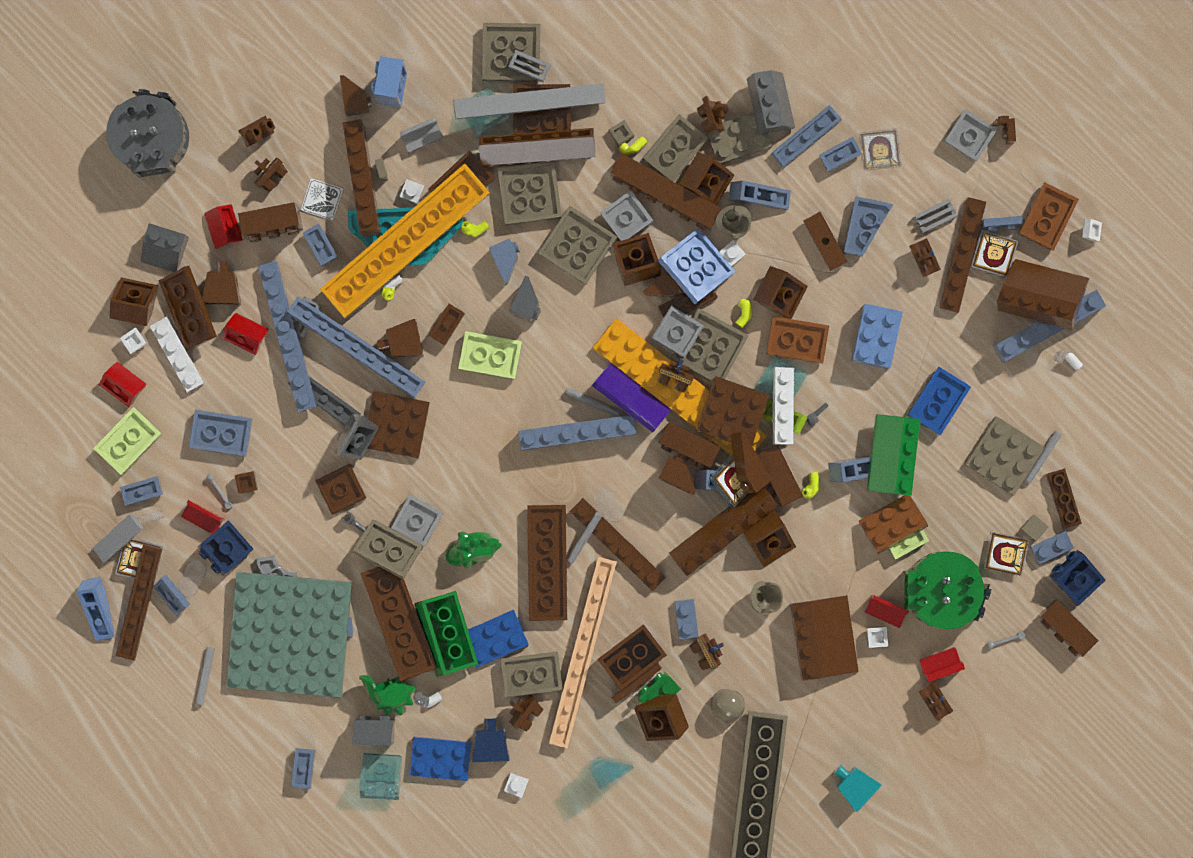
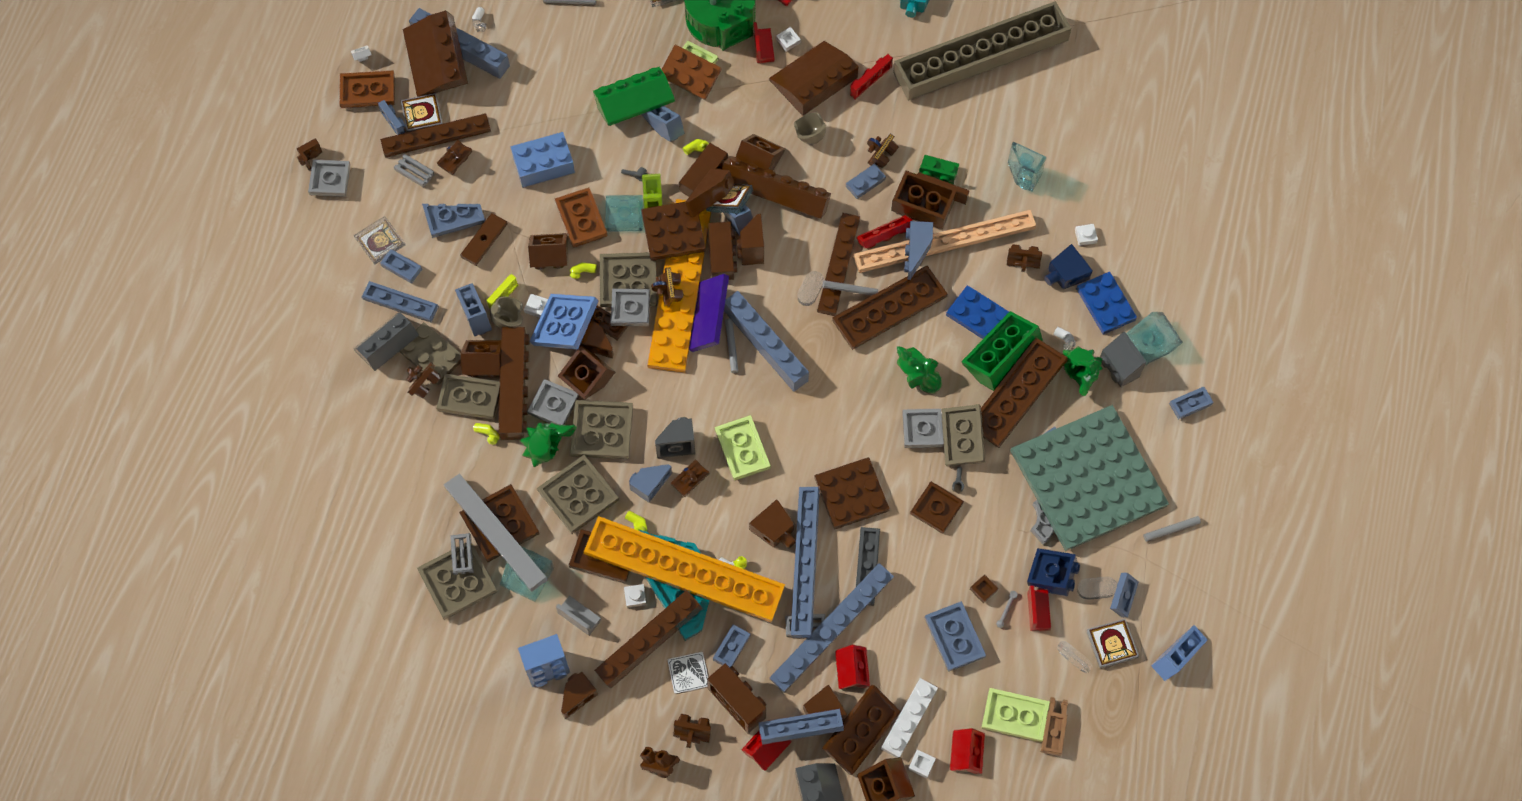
camera: 125 degrees left, 20 degrees down
(97, 465) = (1054, 729): none -> medium nougat hinge
(118, 538) = (1107, 668): light grey tile -> none
(139, 602) = (1148, 619): reddish brown tile -> none
(141, 491) = (1051, 676): sand blue plate -> none
(214, 257) = (801, 726): none -> sand blue plate
(355, 437) = (885, 514): dark grey slope -> none
(381, 169) = (630, 630): dark tan tile -> none
(447, 324) = (737, 498): reddish brown plate -> none
(486, 293) = (690, 478): none -> reddish brown hips
(531, 674) = (989, 269): dark tan plate -> none
(537, 147) = (532, 505): brick -> none
(590, 625) = (920, 241): none -> sand blue slope
(593, 188) = (544, 441): none -> green head
(621, 133) = (480, 449): dark tan tile -> none
(623, 603) = (884, 232): none -> red plate
(662, 718) = (958, 151): reddish brown slope -> none
(728, 705) = (914, 113): dark tan helmet -> none
(760, 229) = (503, 290): none -> neon yellow tile
(783, 405) = (644, 194): white plate -> none
(792, 690) = (870, 76): none -> red plate
(939, 400) = (568, 90): blue plate -> none
(1004, 455) = (584, 26): dark tan plate -> none

